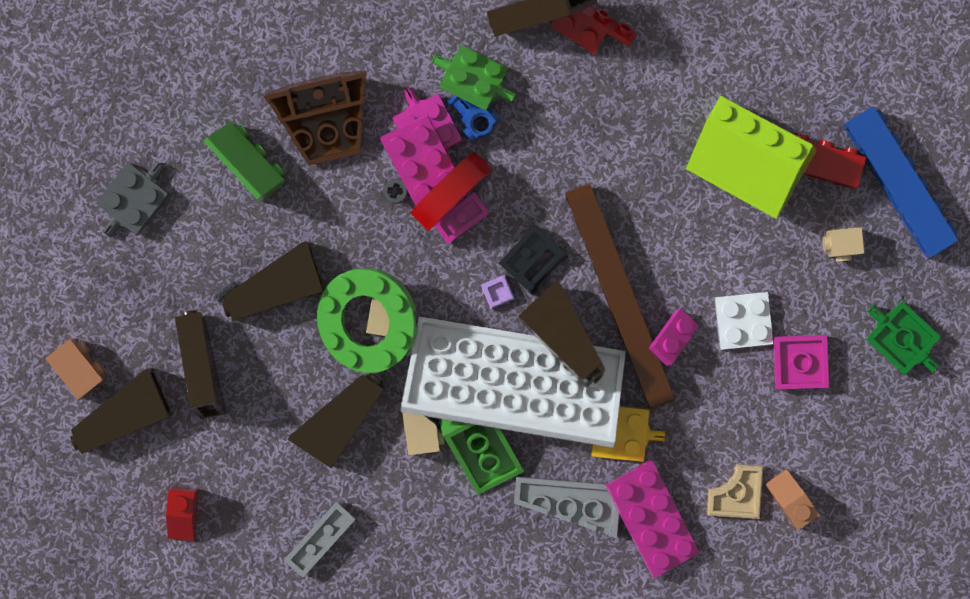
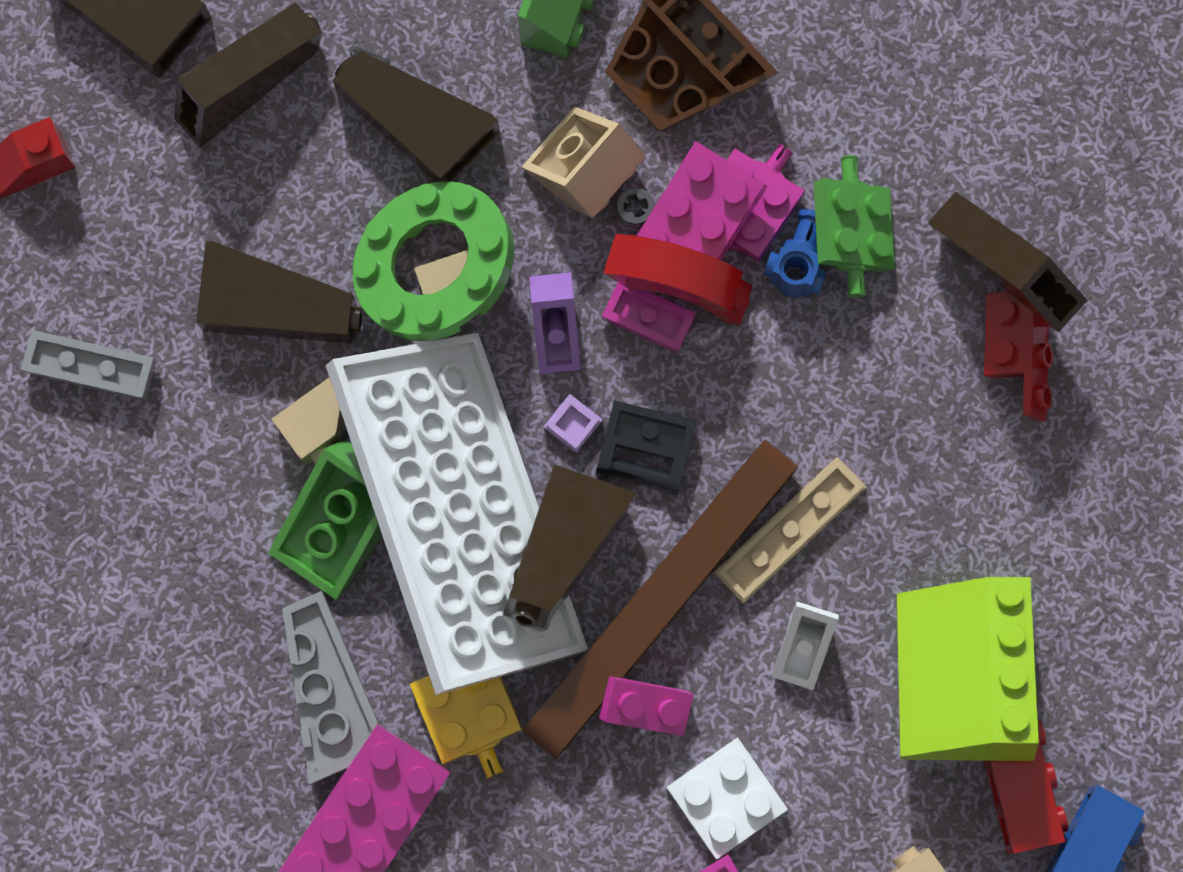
camera: 65 degrees right, 10 degrees down
(353, 205) = (585, 161): none -> tan slope
(436, 271) = (555, 323): none -> medium lavender slope
(620, 206) = (790, 530): none -> tan tile
(688, 235) = (805, 645): none -> white slope

